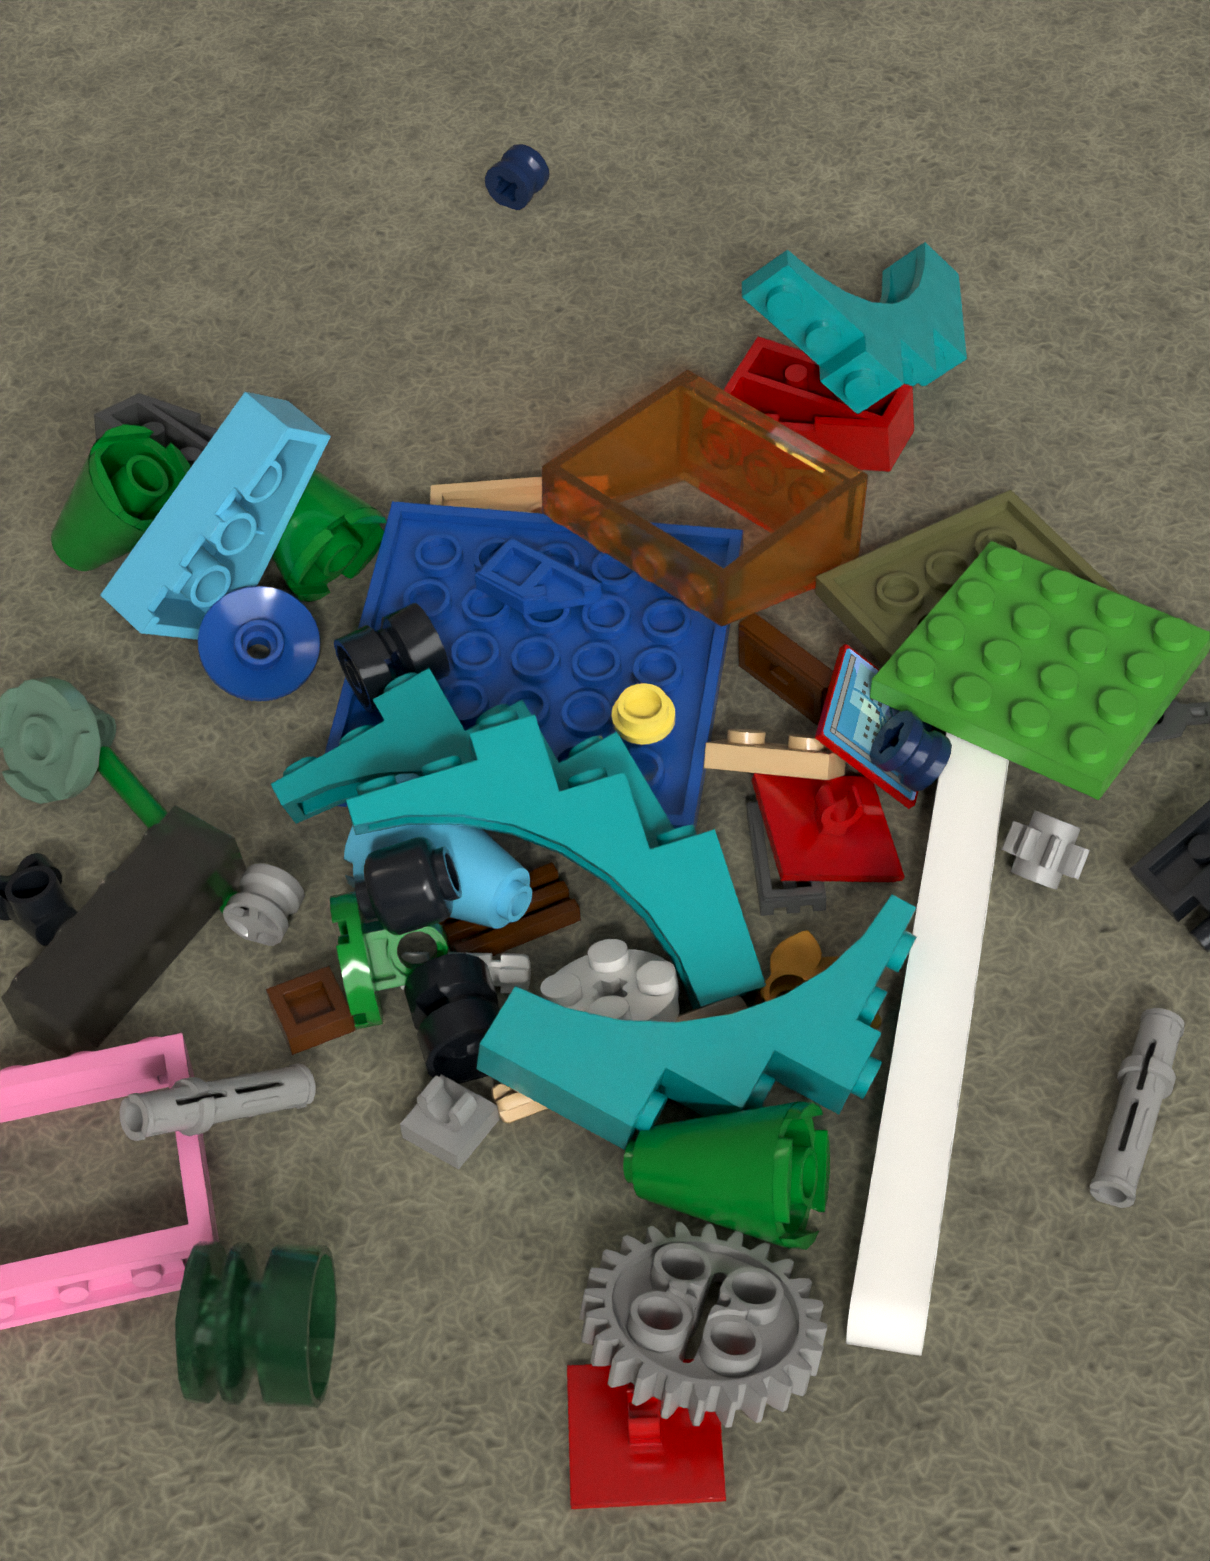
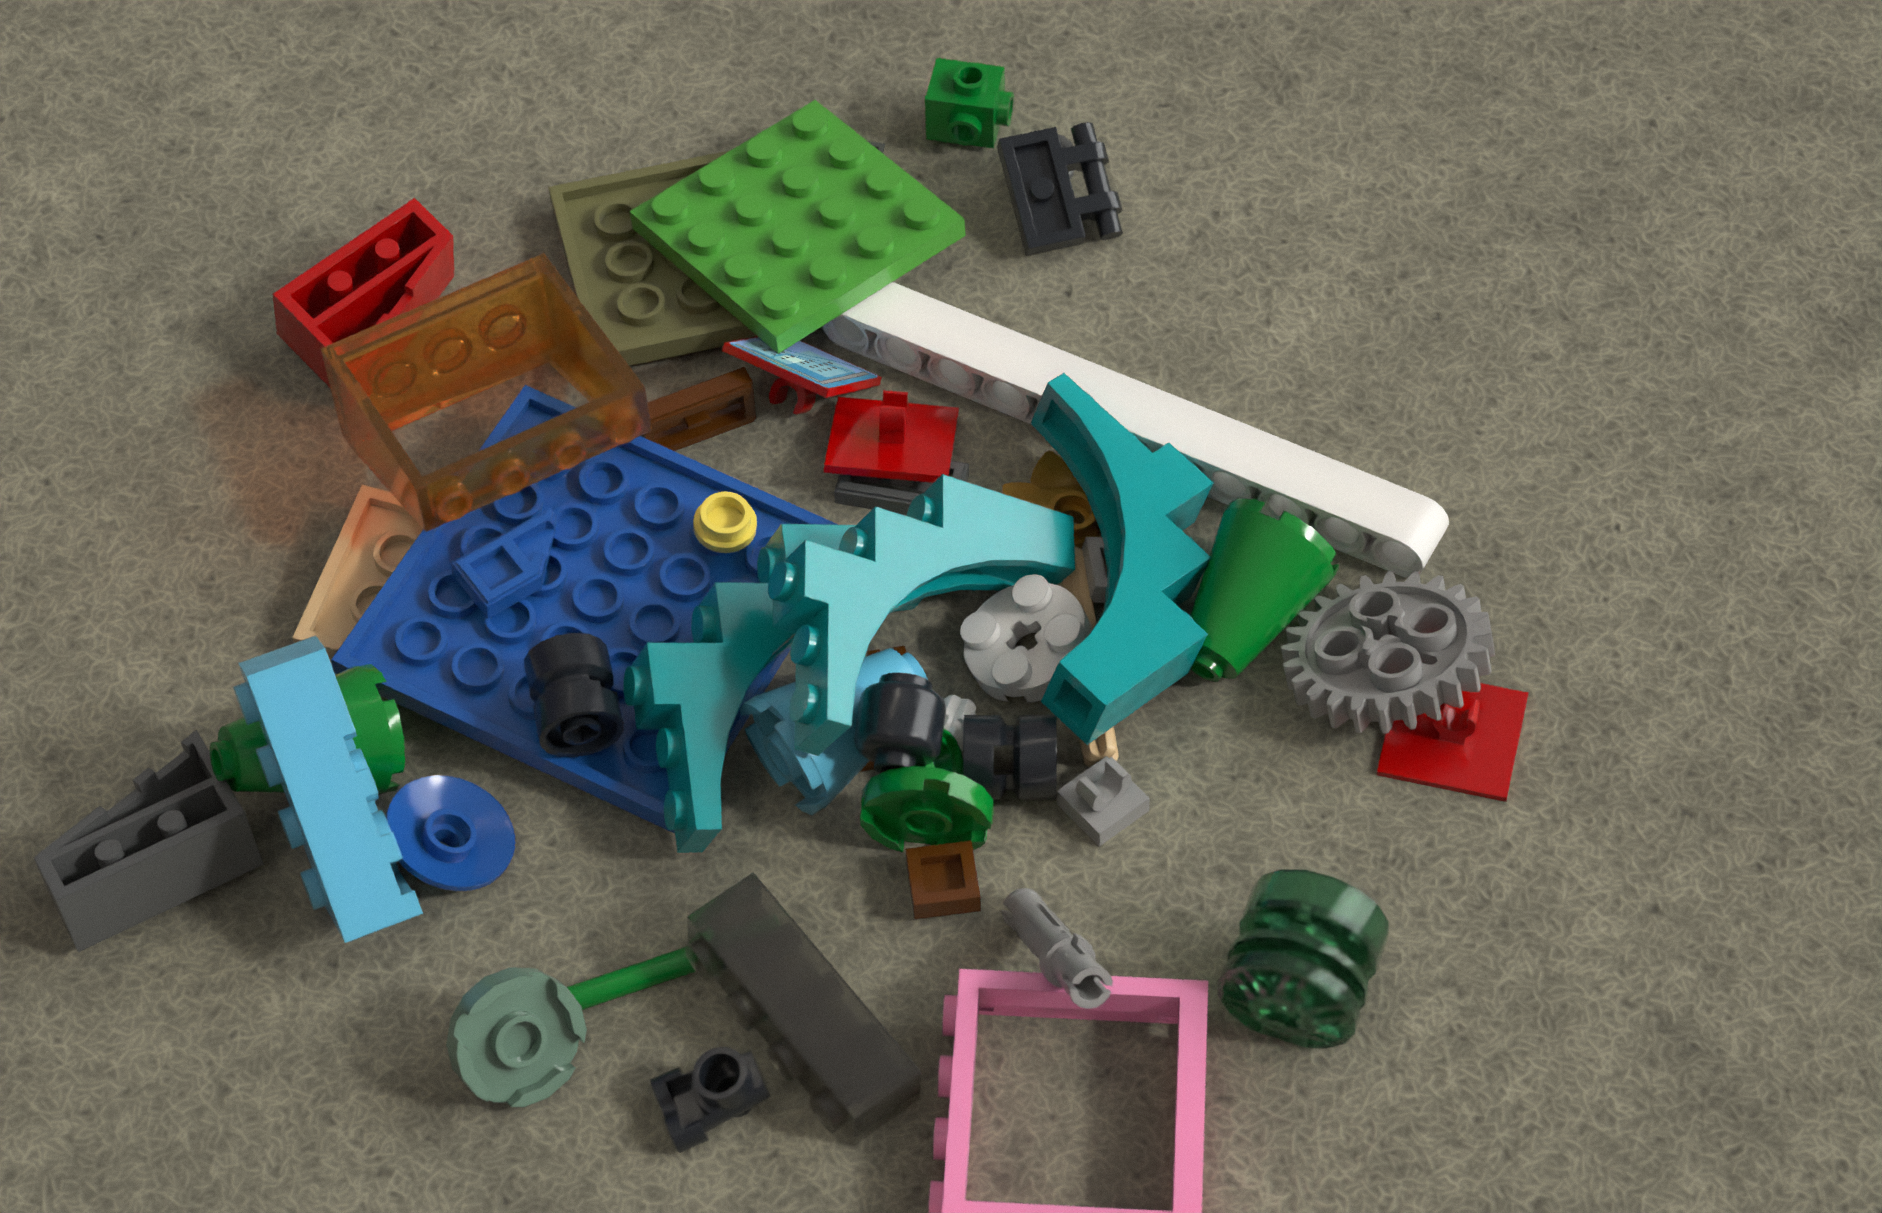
camera: 75 degrees left, 5 degrees up
(116, 496) = (215, 902): green cone -> none
(263, 904) = (805, 892): light grey wheel -> none
(748, 752) = (816, 432): tan plate -> none
(864, 344) = (326, 190): teal arch -> none
(910, 751) = (868, 339): dark blue wheel -> none
(1045, 850) = (992, 291): light grey gear -> none
(1145, 1081) = (1245, 310): light grey pin -> none

